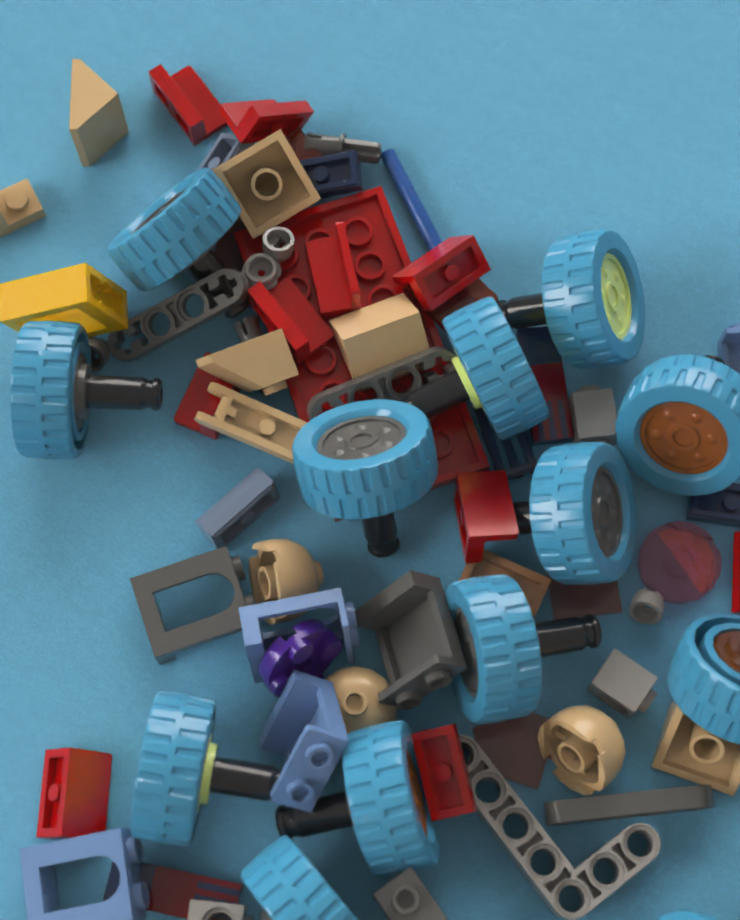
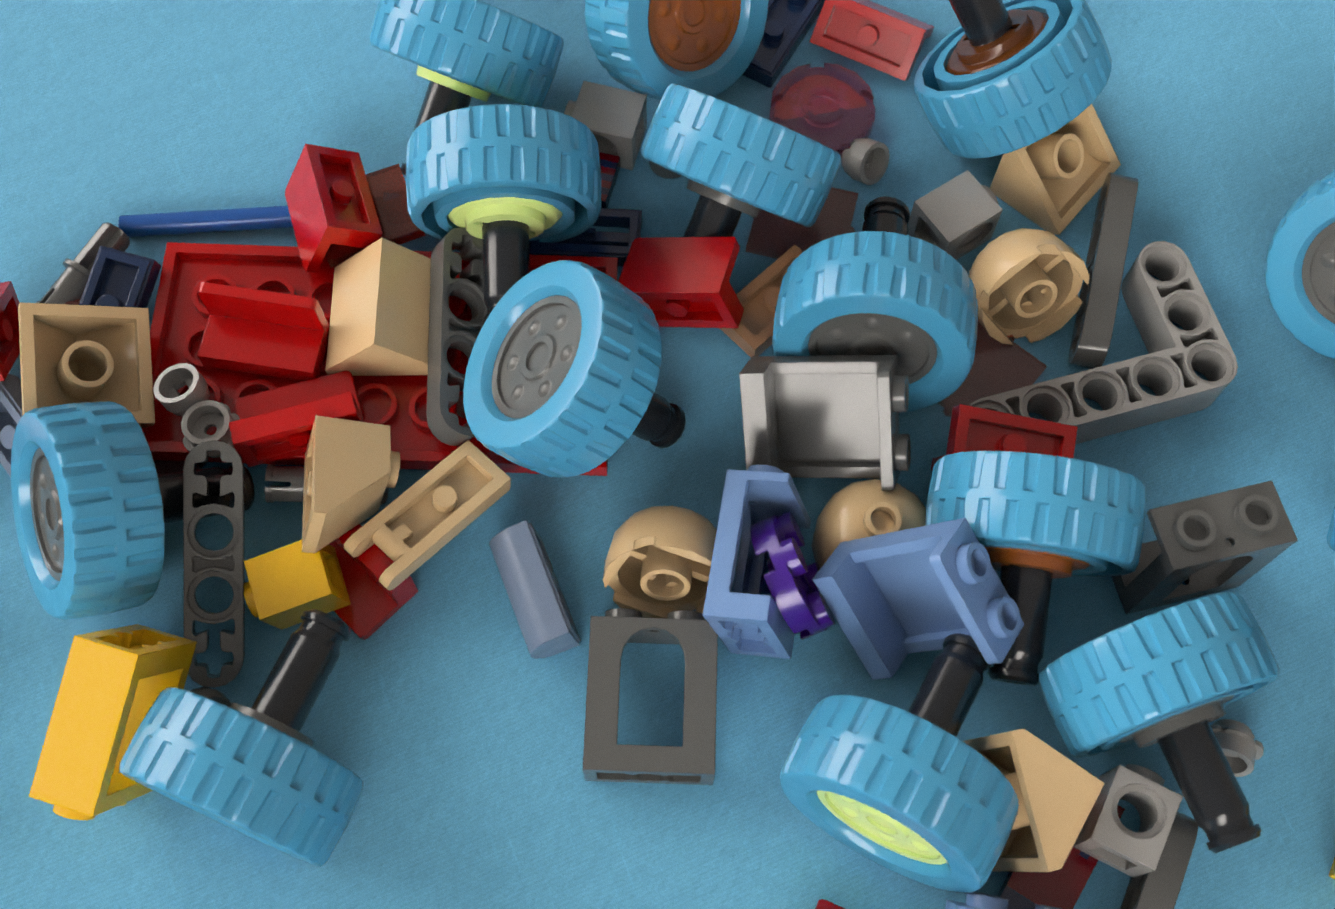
camera: 70 degrees left, 5 degrees down
(177, 362) = (291, 582): none -> yellow brick
(208, 859) = (1051, 796): none -> tan slope

